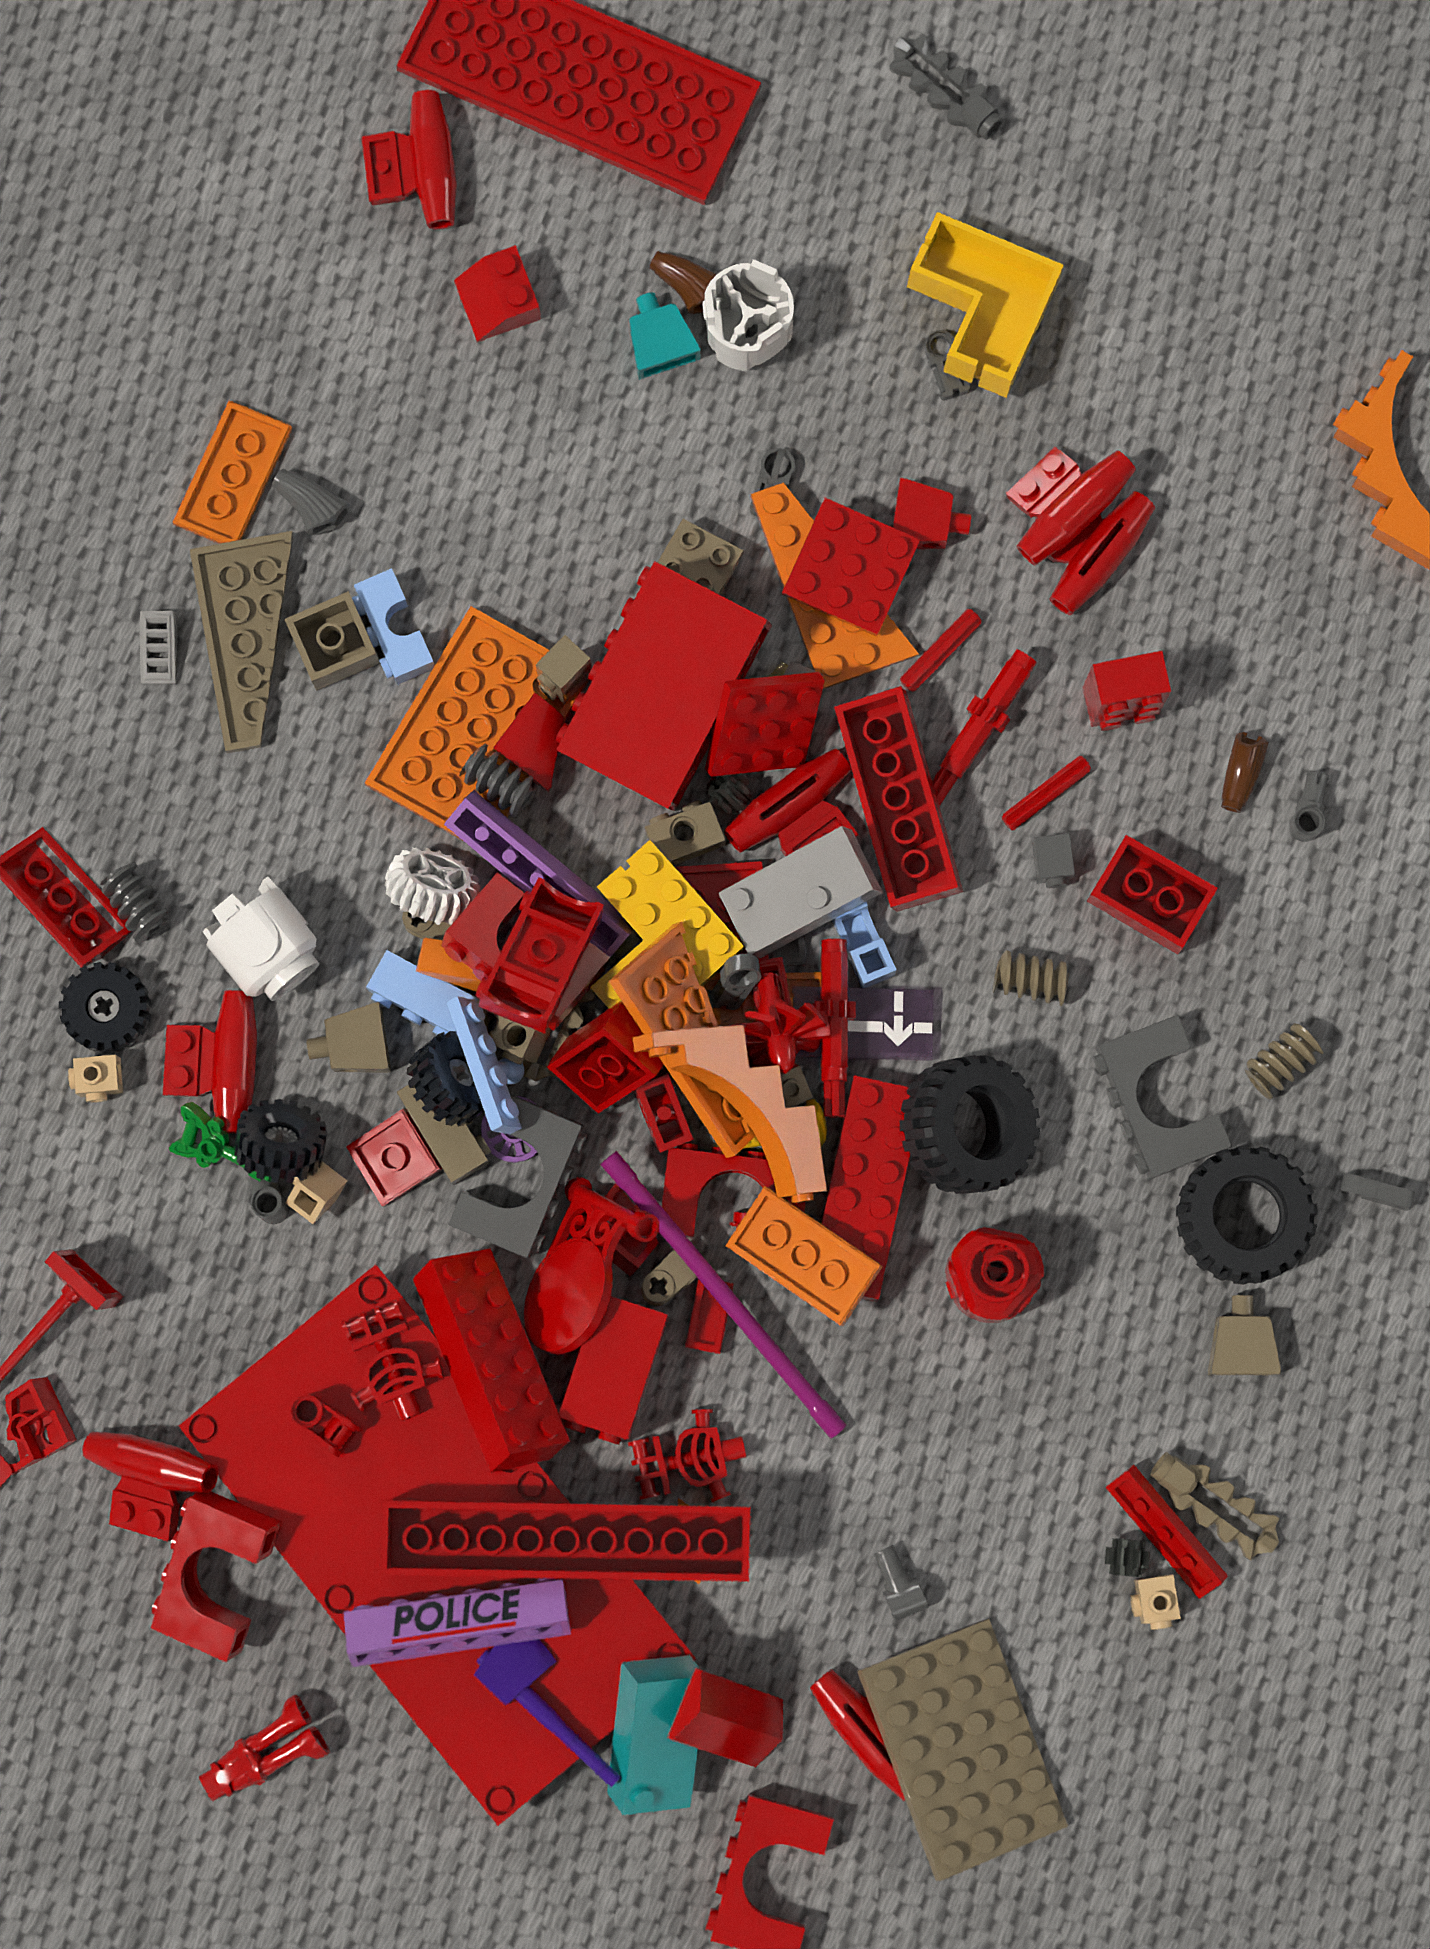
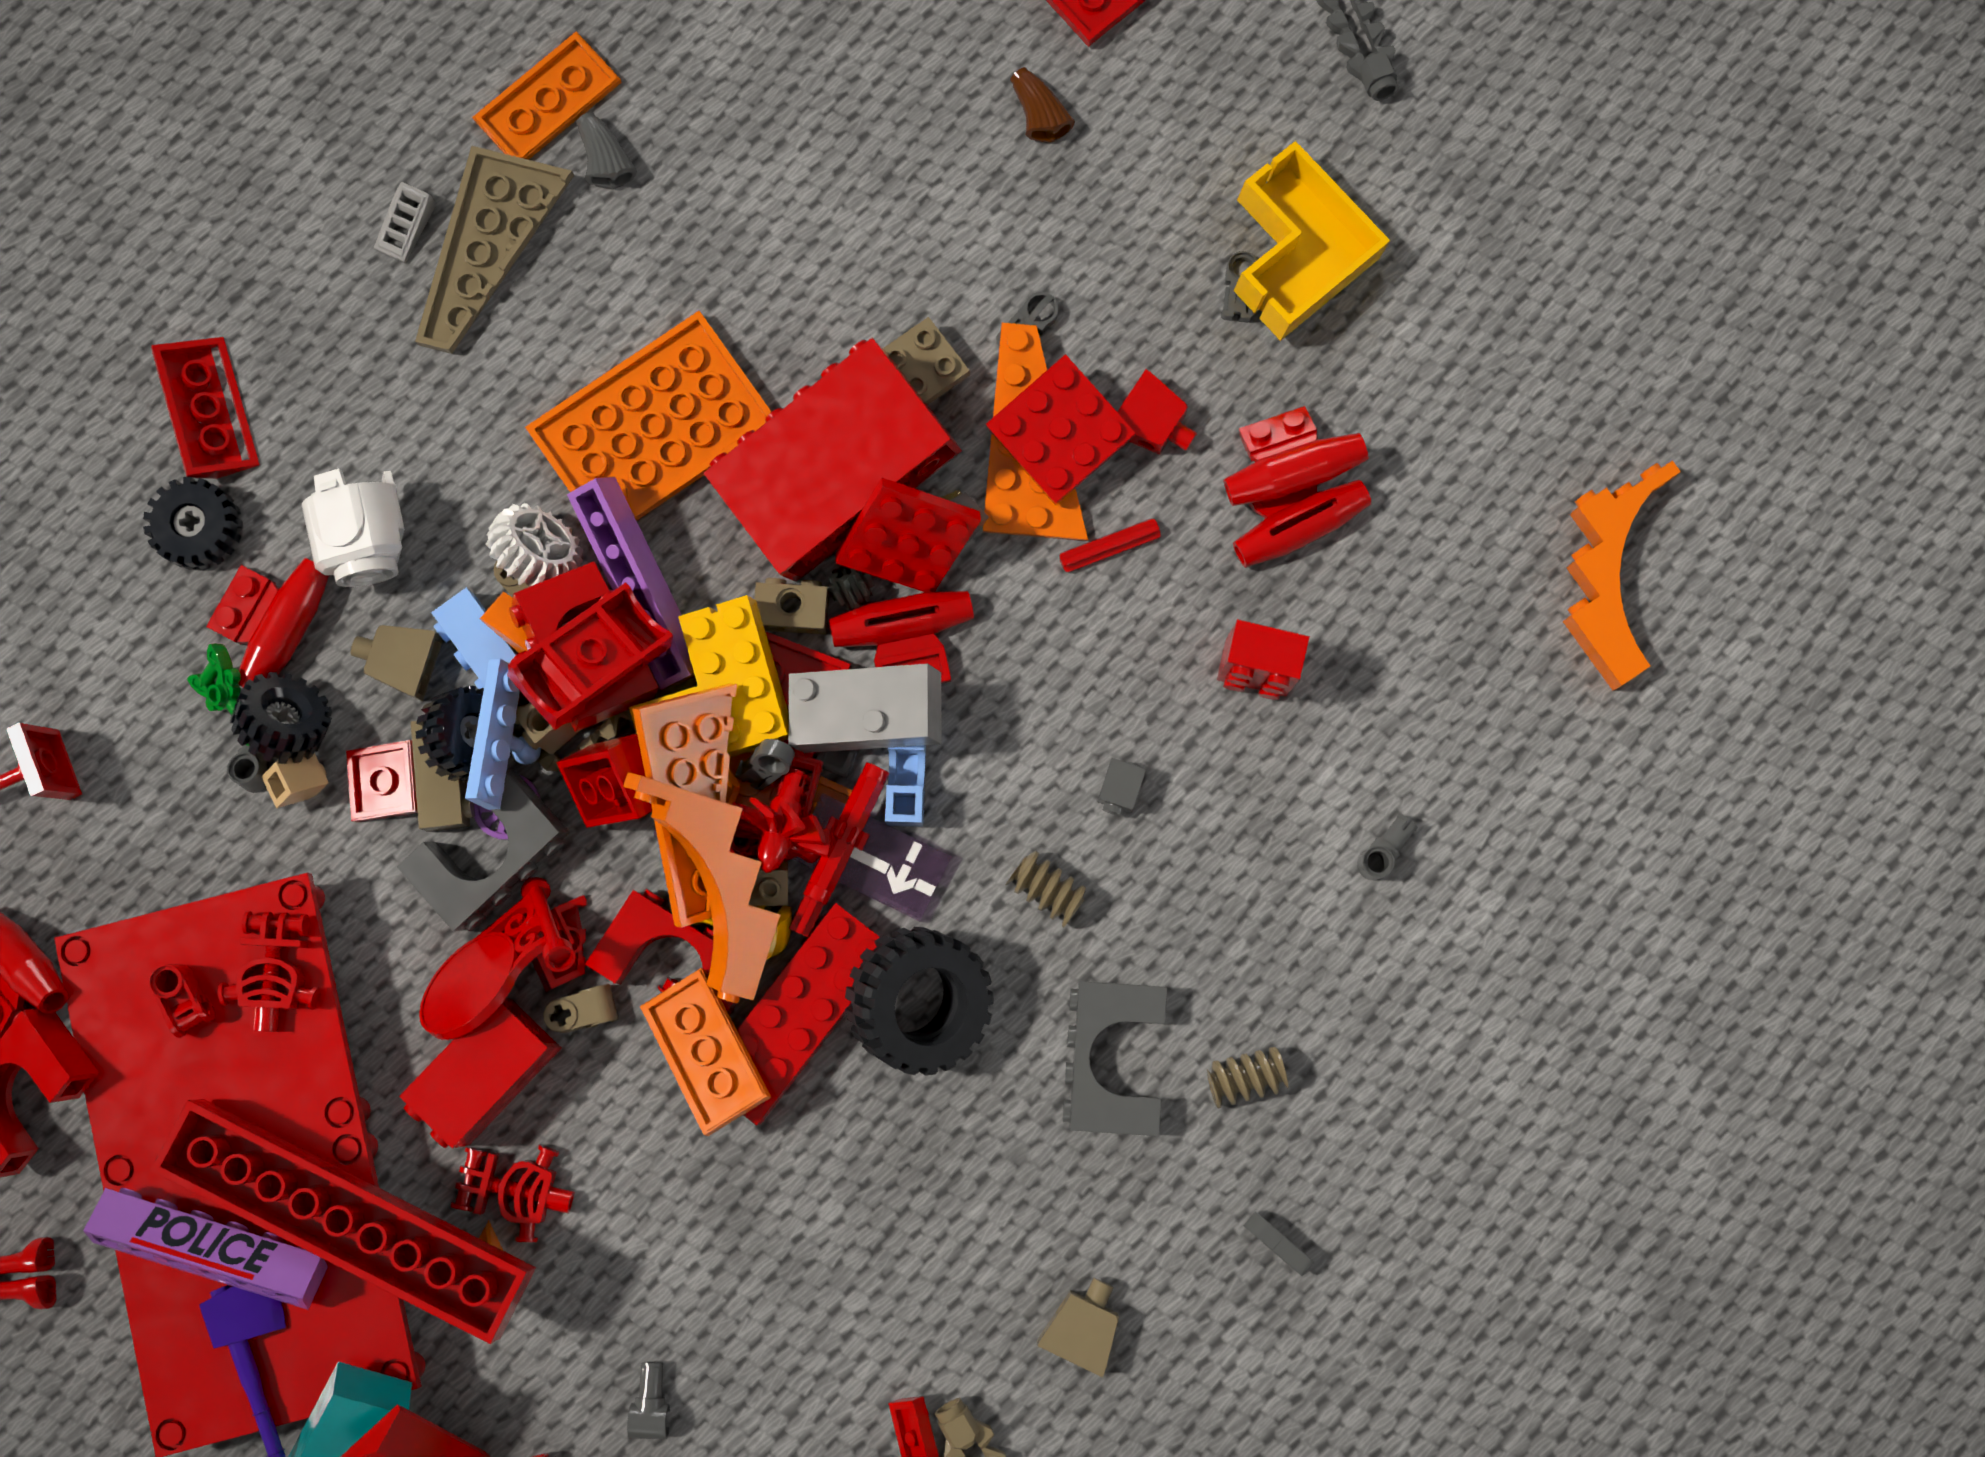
camera: 25 degrees right, 0 degrees up
(96, 1077) = (154, 583): tan brick -> none
(134, 902) = (264, 441): dark grey piece -> none
(332, 641) = (557, 285): dark tan brick -> none
(404, 655) = (618, 268): light blue arch -> none
(490, 1360) = (366, 1013): red brick -> none
(497, 294) = (862, 42): red slope -> none
(498, 780) = (640, 479): dark grey piece -> none
(531, 741) = (688, 456): red slope -> none
(563, 670) = (745, 402): dark tan brick -> none
(660, 338) = (988, 146): teal torso -> none
(663, 1112) = (641, 857): red brick -> none
(707, 1322) = (598, 1064): red plate -> none
(745, 297) = (1081, 140): white piece -> none
(818, 1407) = (656, 1199): magenta piece -> none
(898, 799) = (1002, 664): red brick -> none
(973, 1281) = (901, 1153): red piece -> none
(985, 717) = (1120, 626): red piece -> none
(1046, 792) = (1145, 721): red axle -> none
(1152, 894) = (1197, 862): red brick -> none
(1242, 771) = (1338, 785): reddish brown piece -> none
(1293, 1201) = (1193, 1217): black tyre -> none

